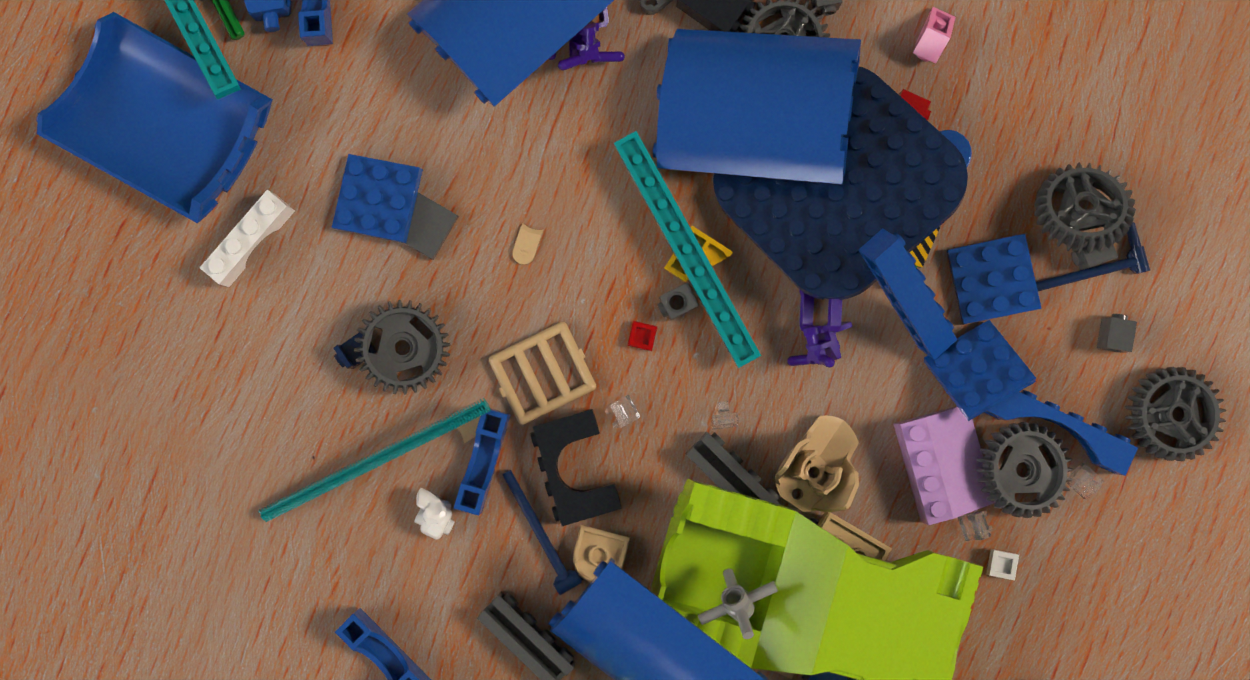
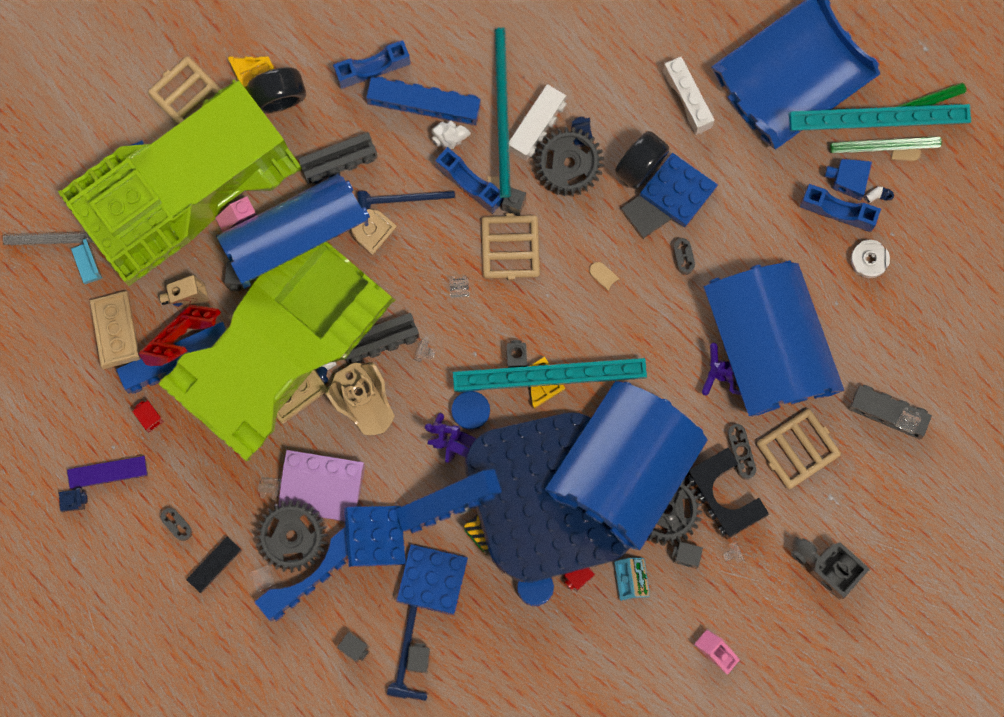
camera: 110 degrees right, 10 degrees down
(361, 255) = (641, 159): none -> black wheel
(367, 412) = (536, 123): none -> white brick
(402, 568) = (423, 100): none -> blue brick
(462, 161) = (680, 258): none -> dark grey beam
(484, 389) = (515, 202): none -> dark grey brick
(570, 503) = (415, 225): black arch -> none
(642, 336) = (504, 323): red tile -> none
(738, 603) = (302, 287): light grey bar -> none
(771, 326) = (470, 410): none -> blue tile
(885, 47) = (632, 578): none -> panel
(934, 35) = (625, 619): bright pink slope -> none
(1002, 564) = (234, 493): white plate -> none
(1070, 220) = (442, 673): dark grey gear -> none
(1072, 615) = (173, 527): none -> dark grey beam
(1096, 546) = (214, 565): none -> black plate
(1157, 416) = (289, 673): dark grey gear -> none

